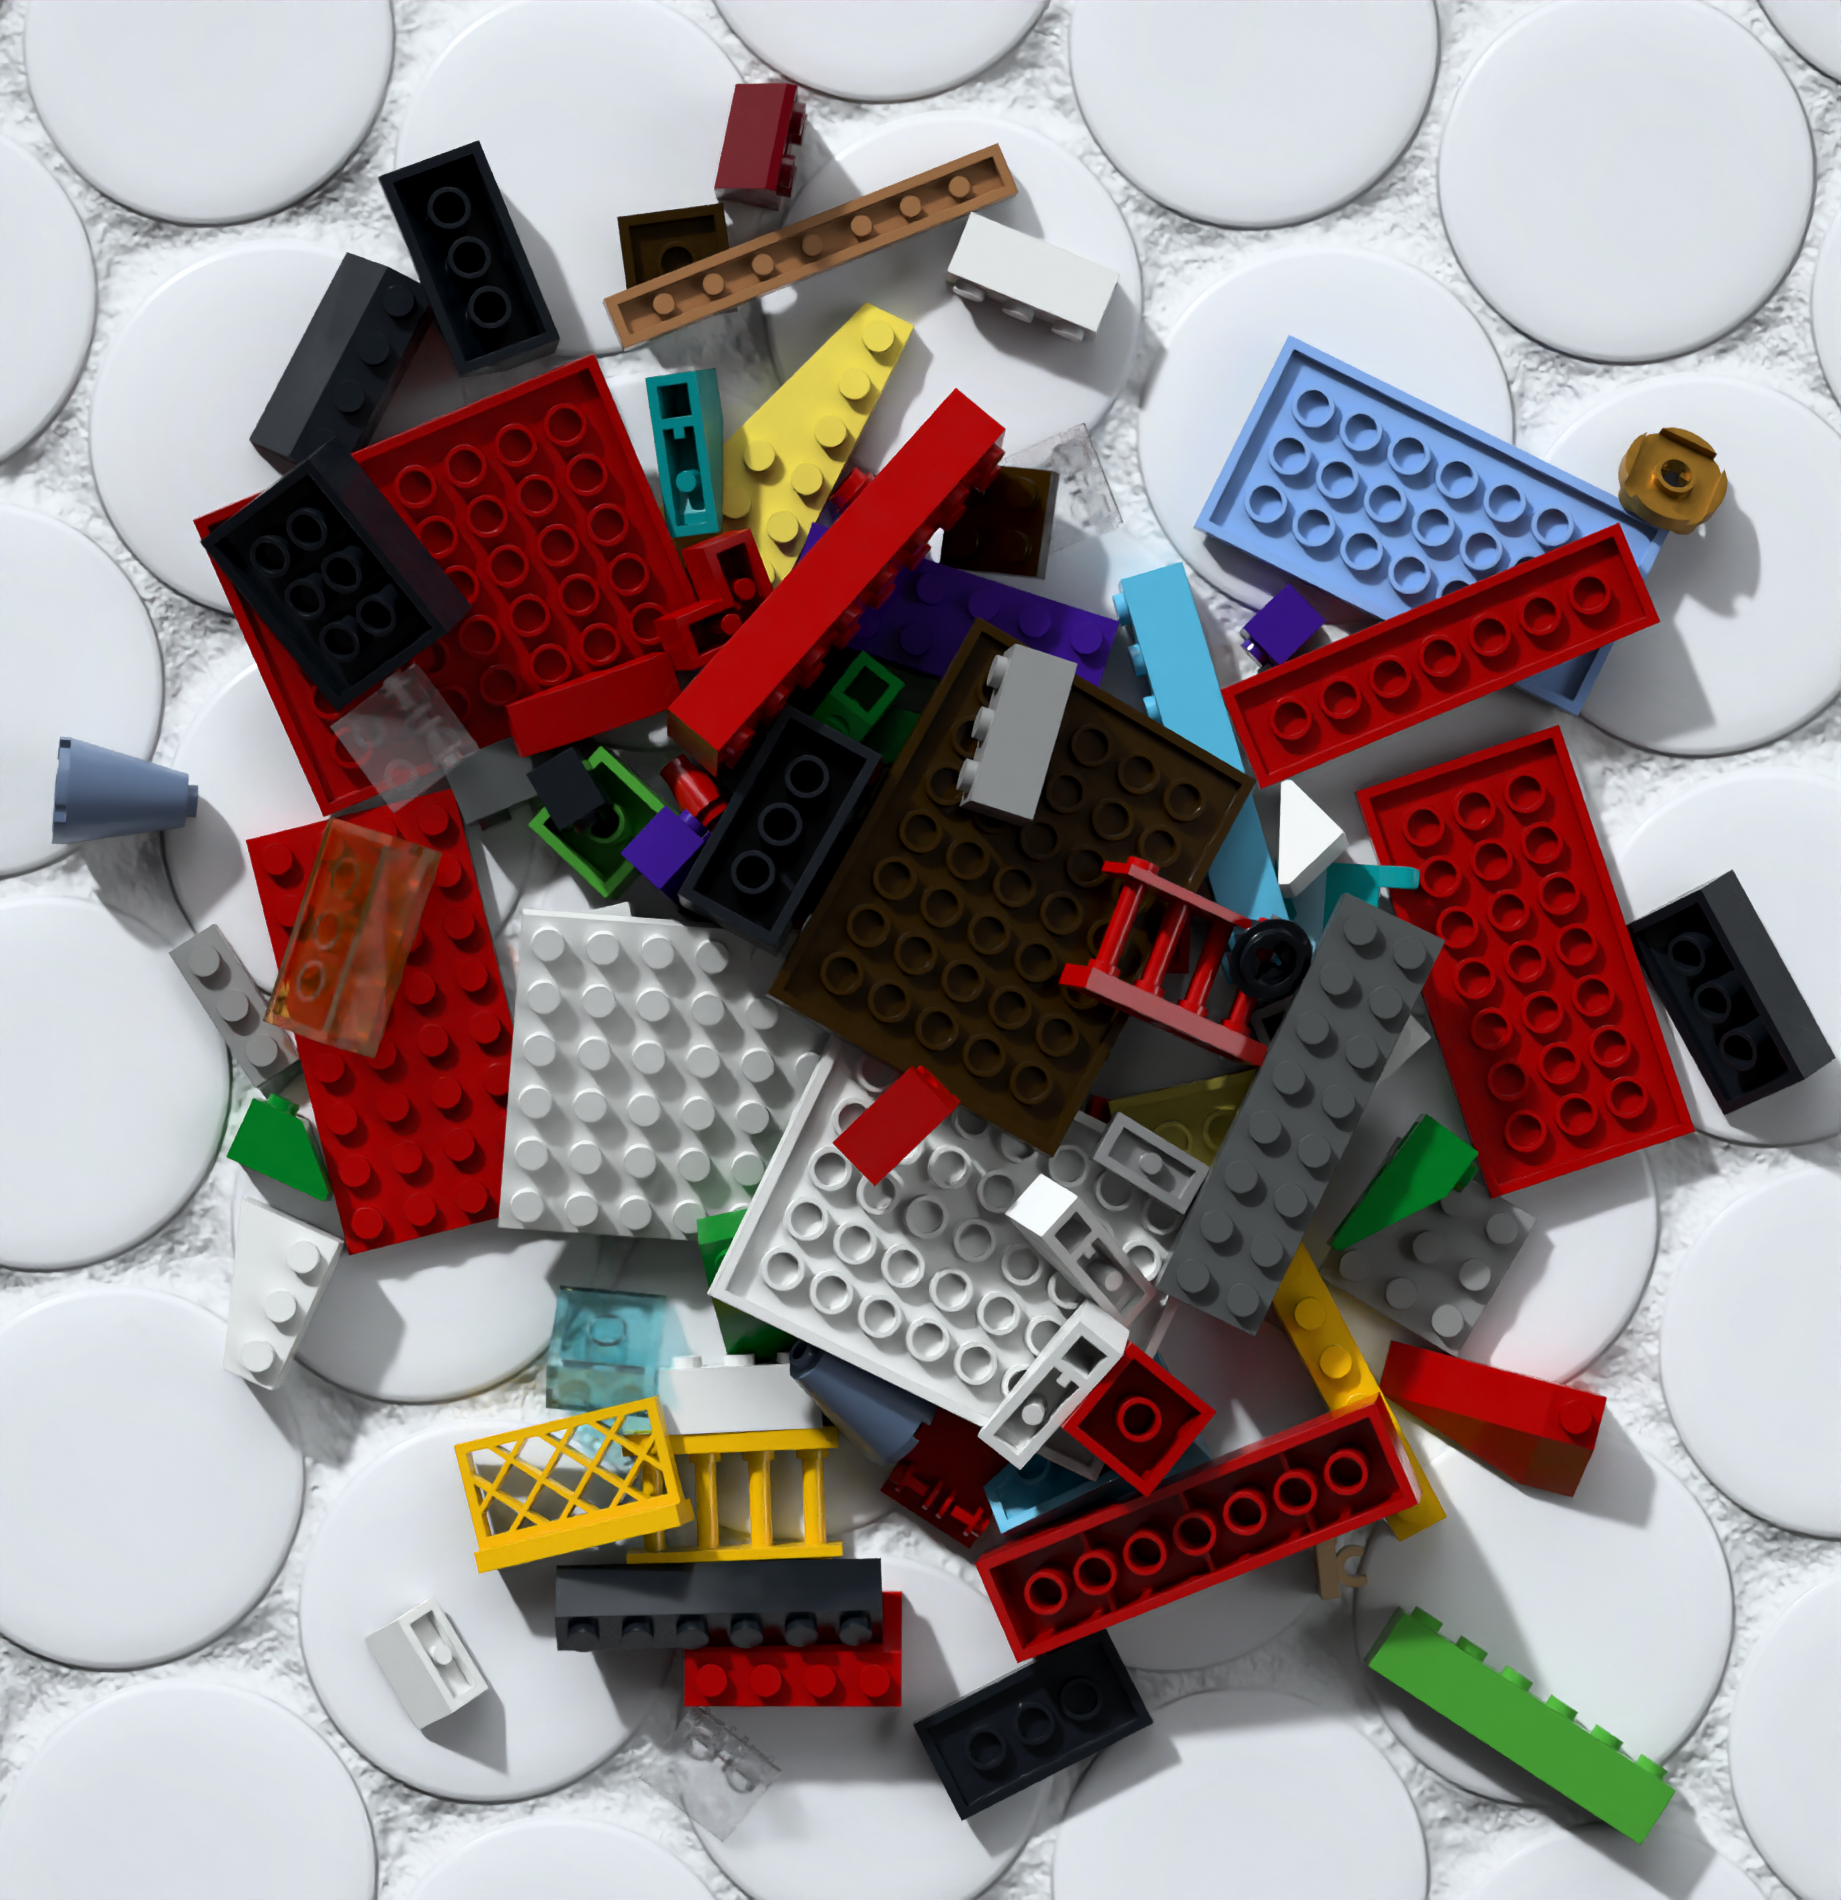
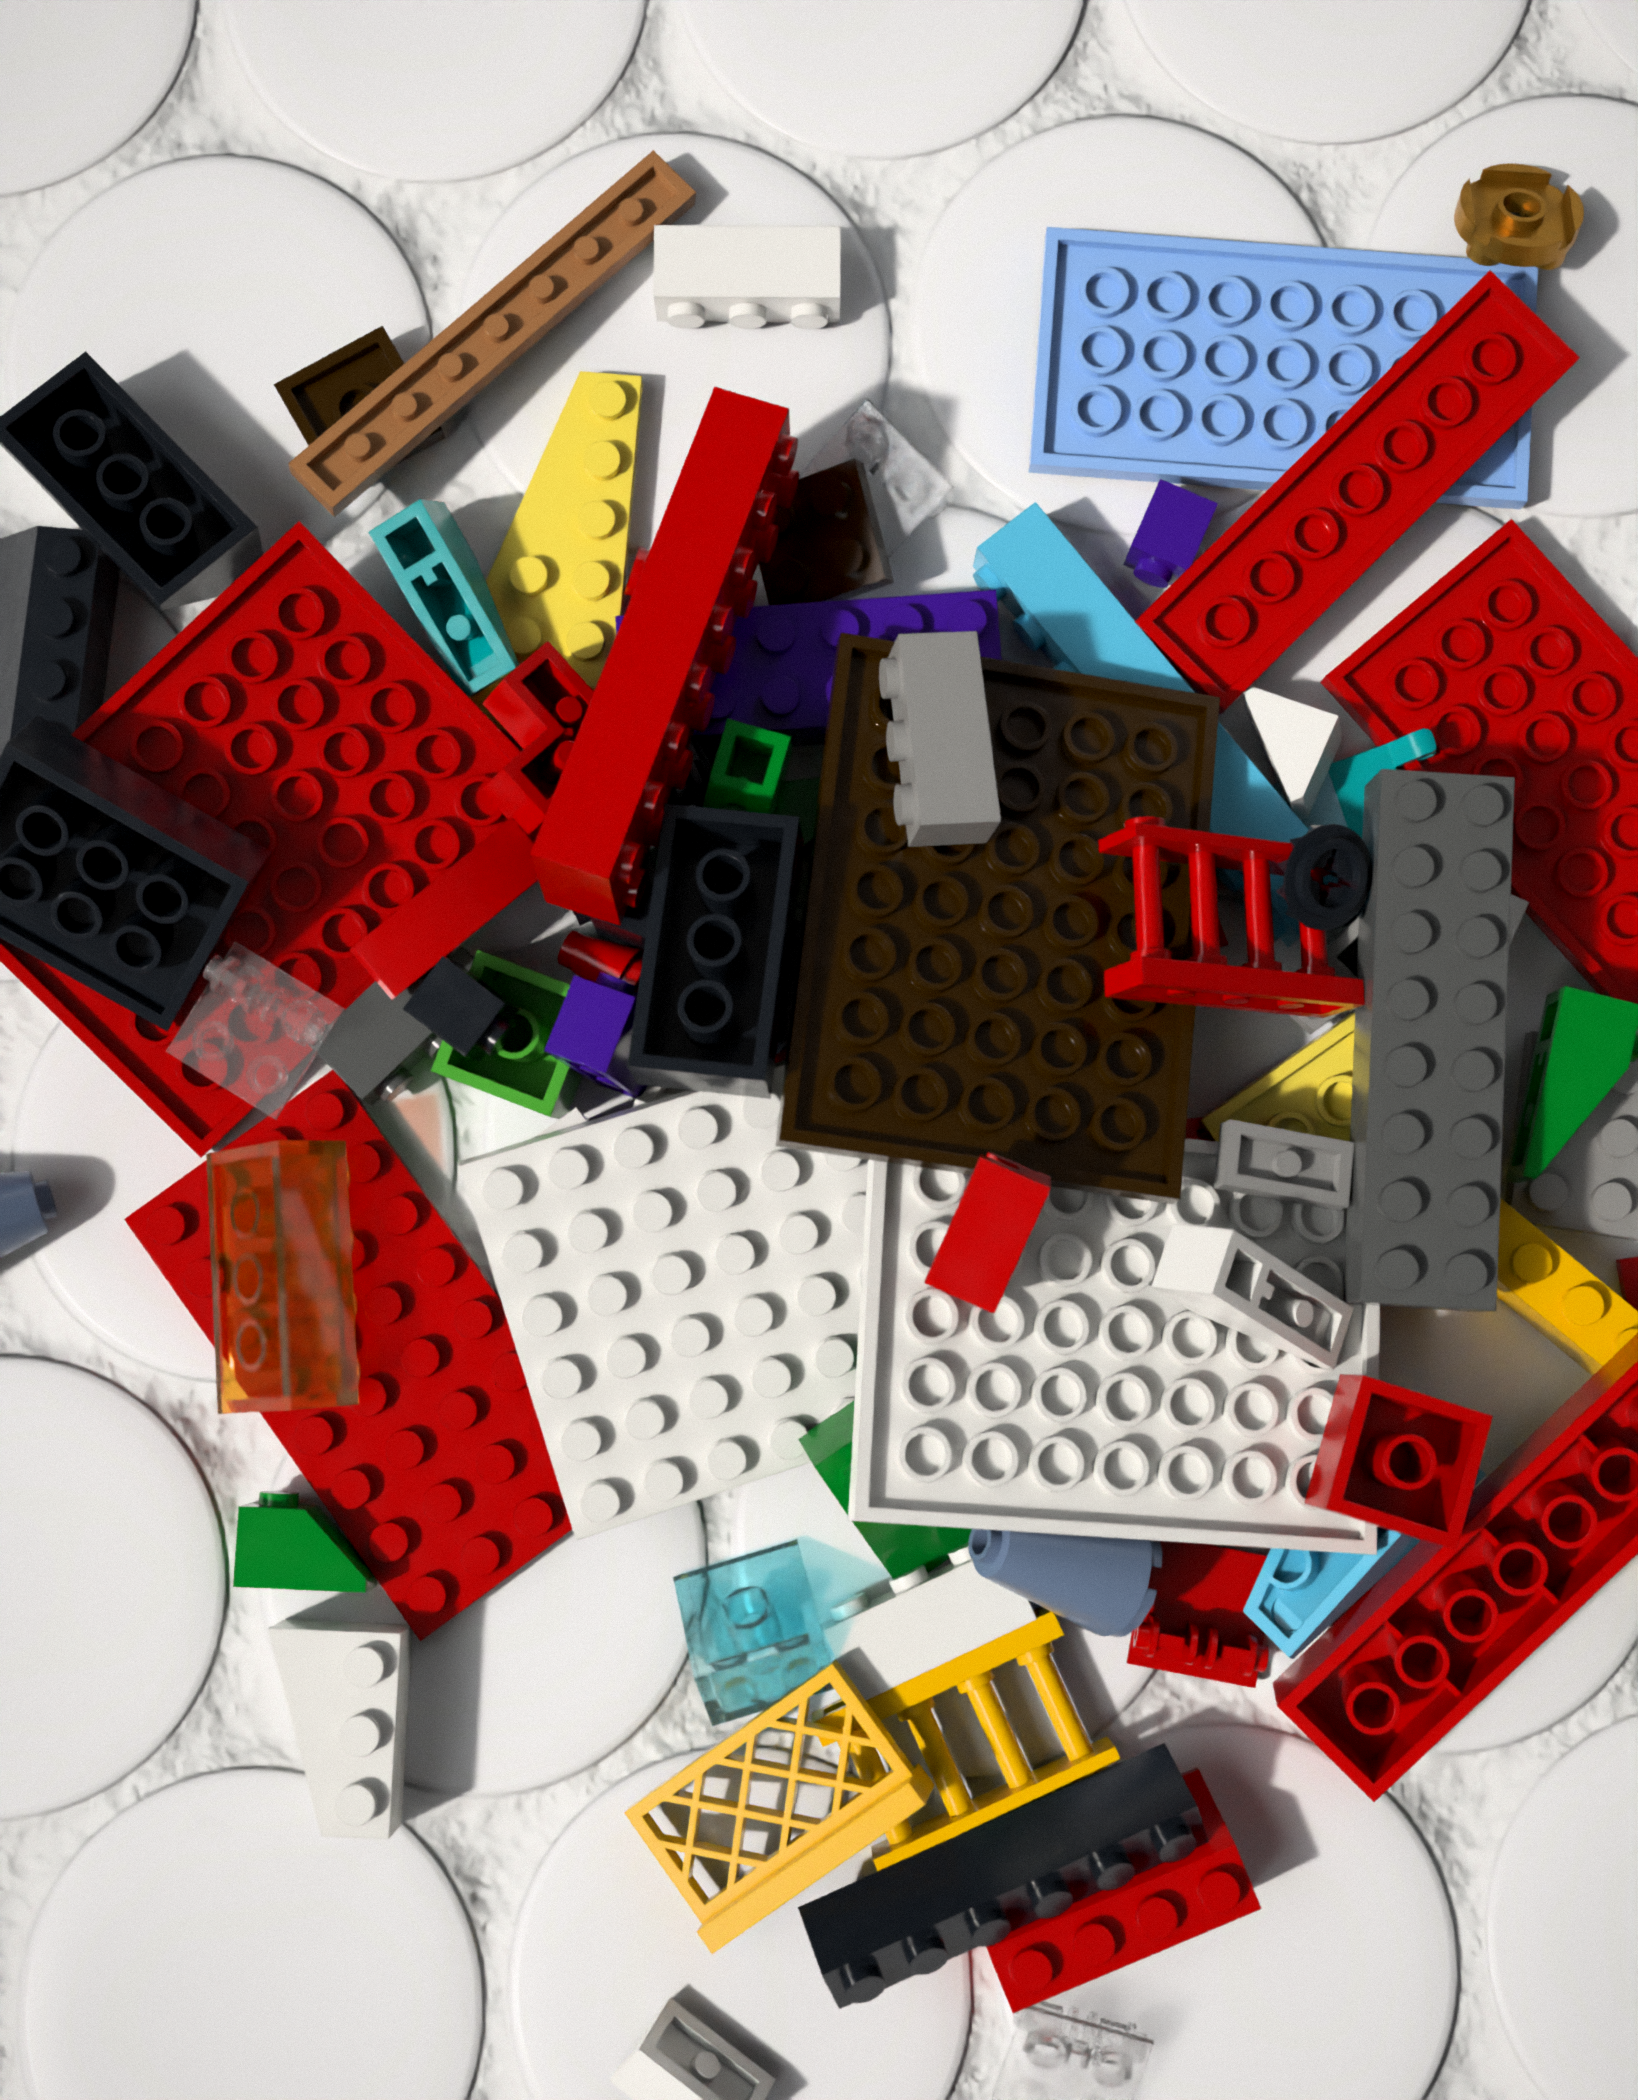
camera: 20 degrees left, 5 degrees down
(234, 1005) = (182, 1409): light grey plate -> none
(758, 145) = (399, 245): dark red slope -> none
(1032, 1723) = (1410, 1865): black plate -> none
(1055, 1383) = (1290, 1458): white slope -> none

